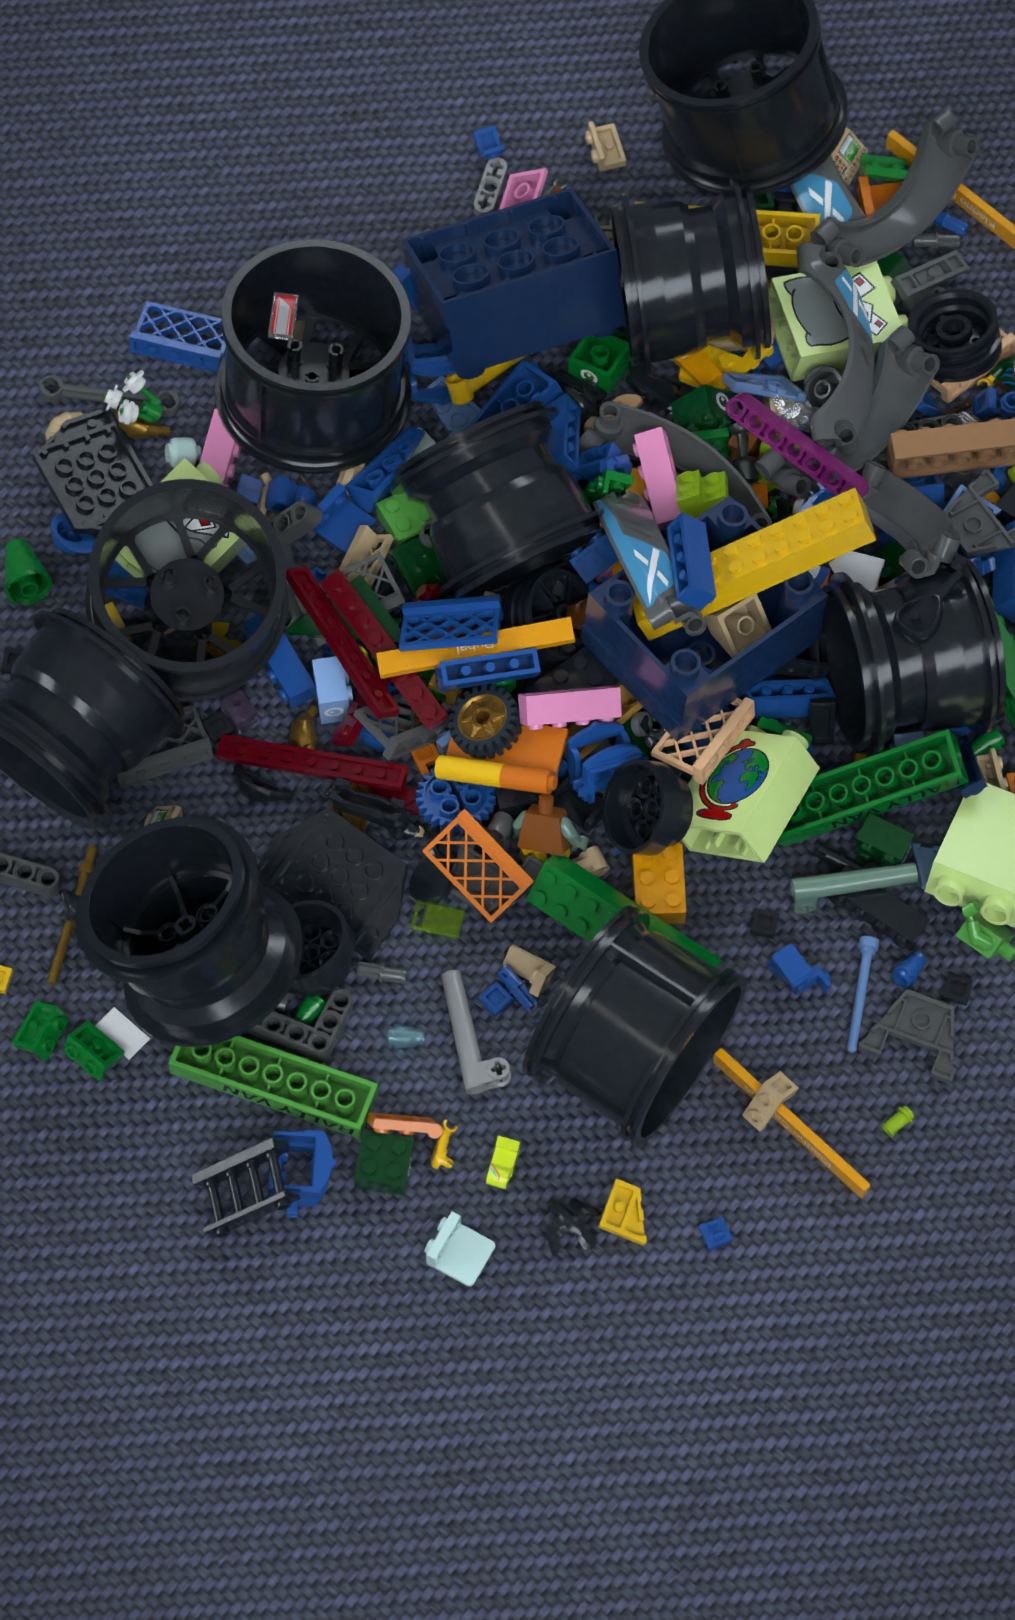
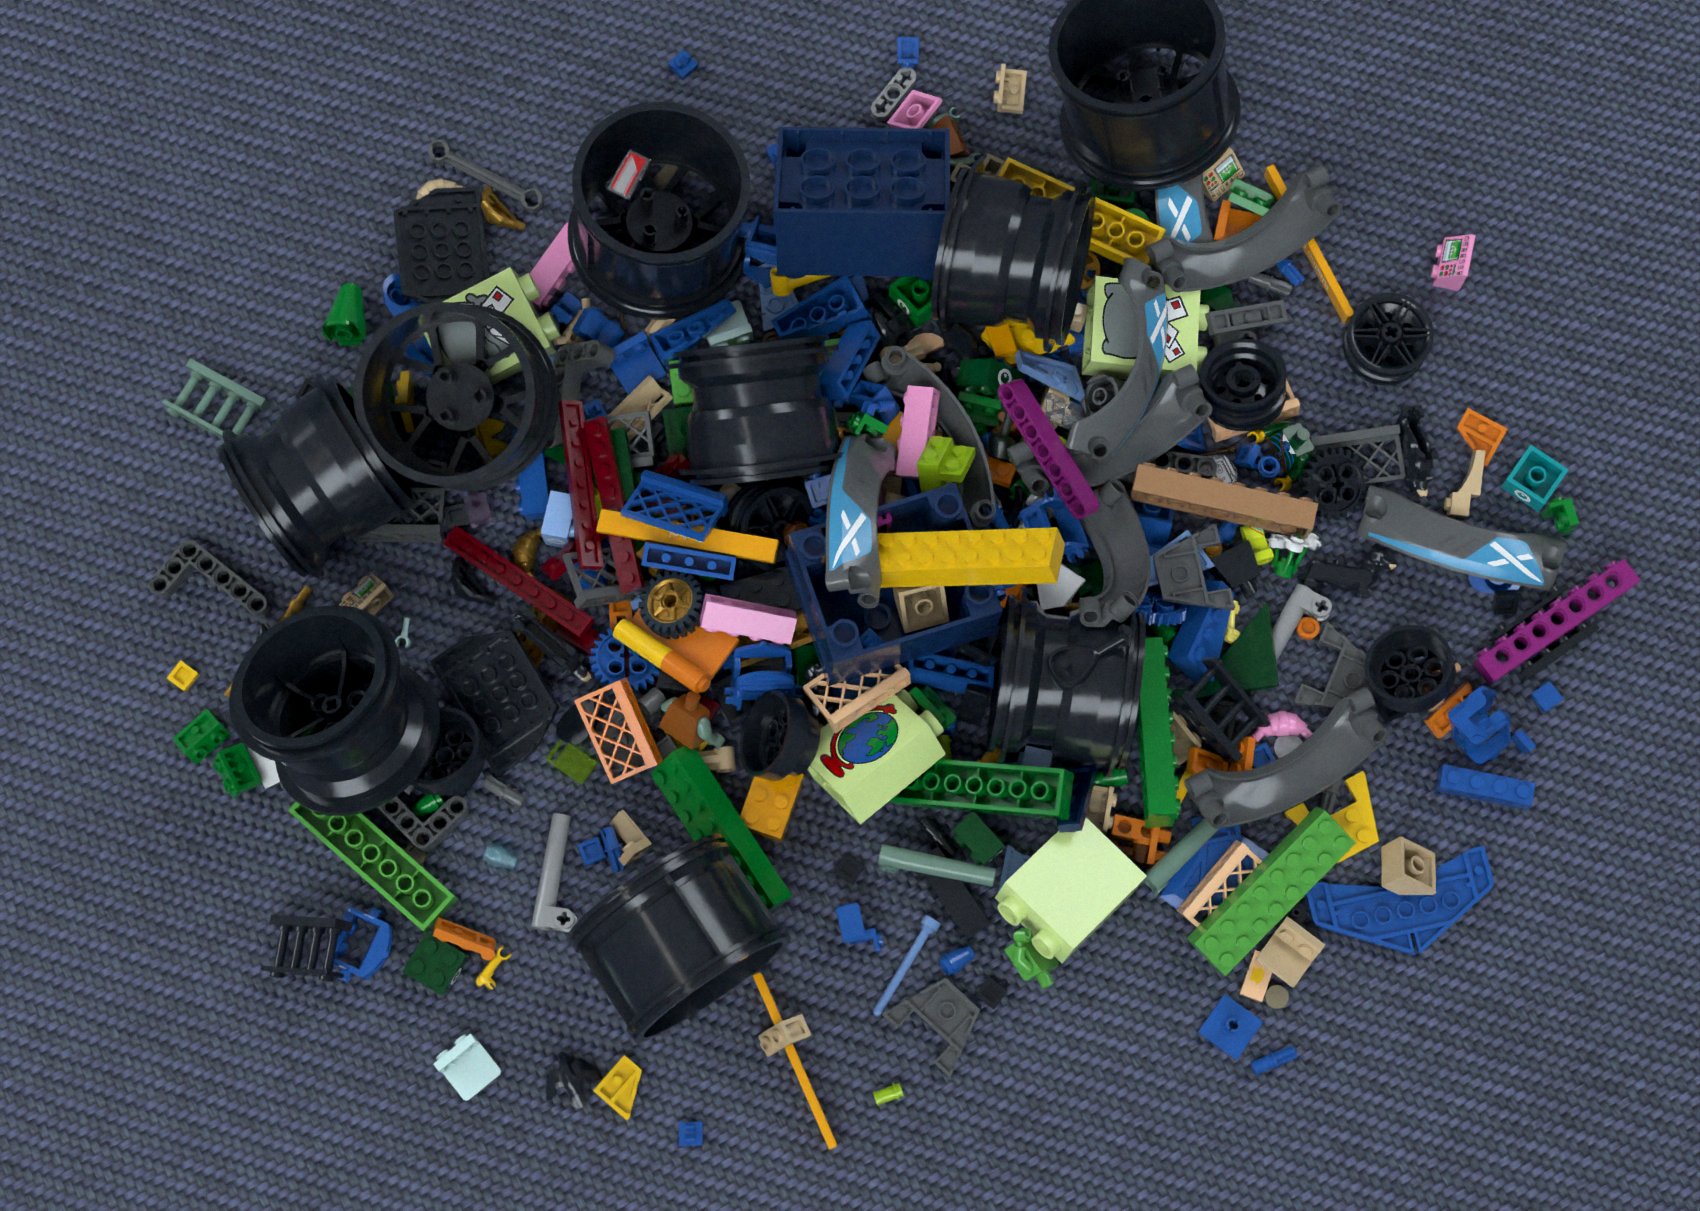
camera: 25 degrees right, 10 degrees up
(128, 411) = (488, 201): white plant -> none
(177, 349) = (545, 146): blue fence -> none
(182, 448) = (525, 252): light aqua head -> none
(266, 227) = (683, 65): none -> blue tile
(503, 1162) = (535, 1003): neon yellow leg -> none
(641, 724) = (807, 655): dark grey tile -> none
(691, 561) = (888, 539): blue brick -> none

